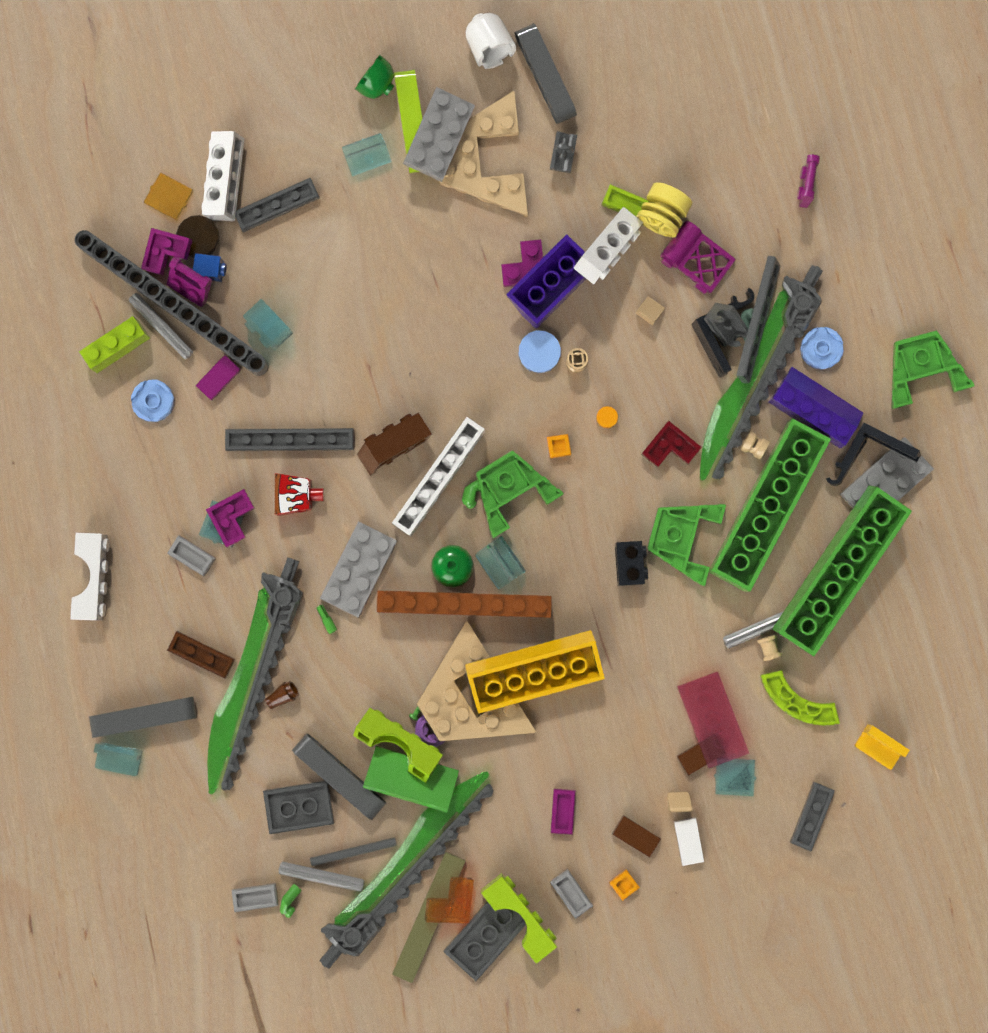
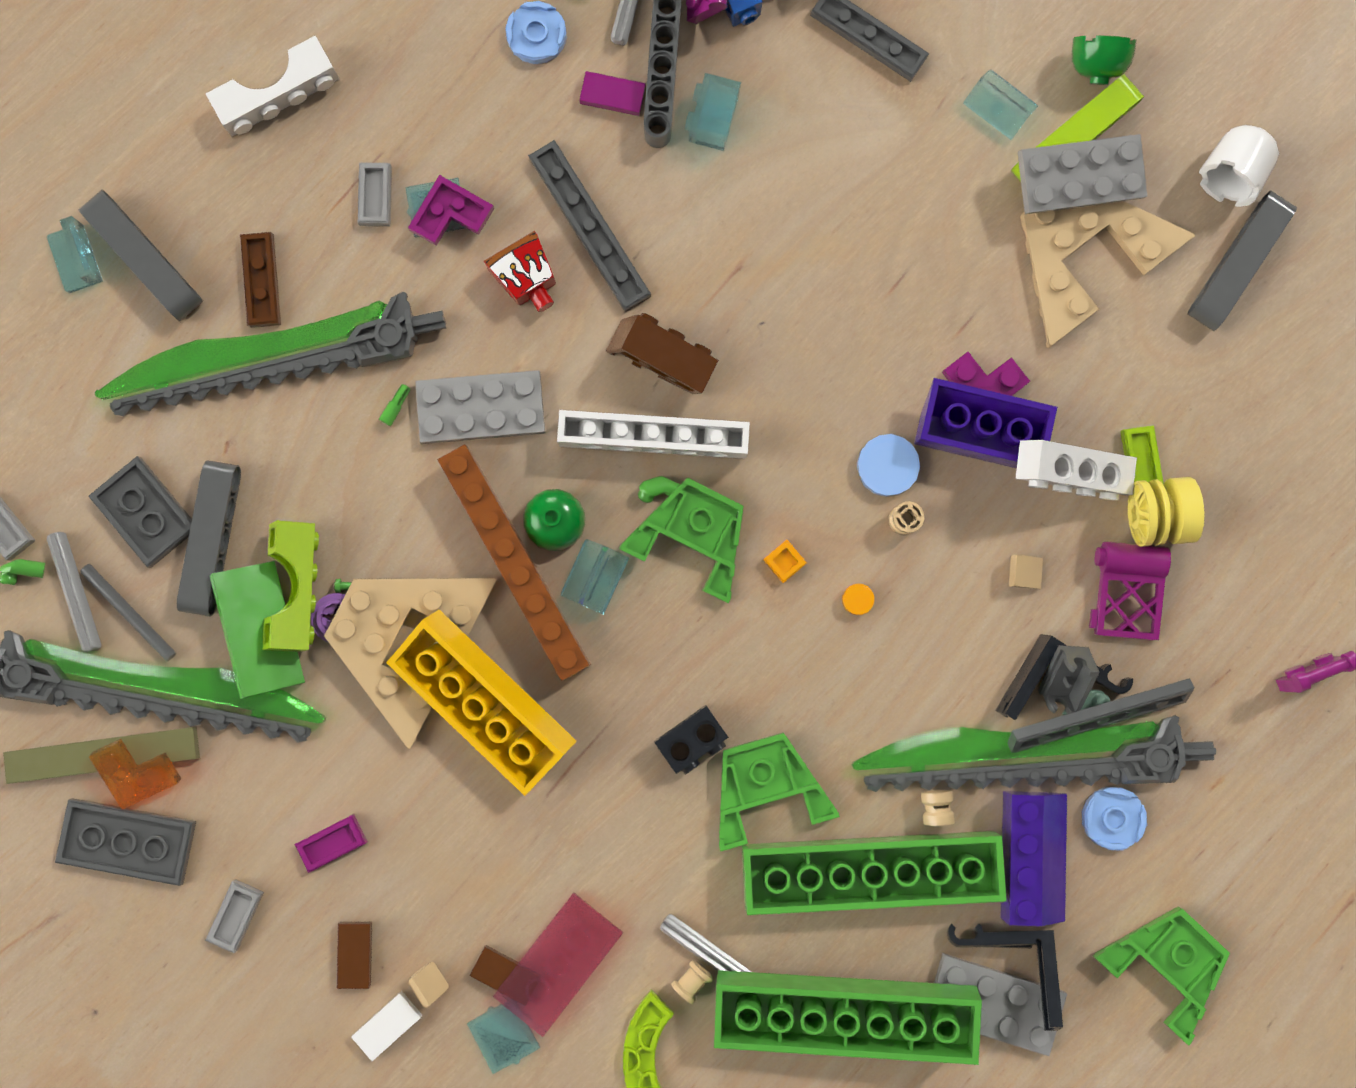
camera: 50 degrees right, 0 degrees up
(282, 695) = (270, 409): reddish brown cone -> none
(502, 895) = (177, 832): lime arch -> none
(563, 152) = (1157, 342): dark grey hips -> none
(624, 884) = (284, 976): light orange tile -> none
(671, 440) = (878, 695): dark red plate -> none

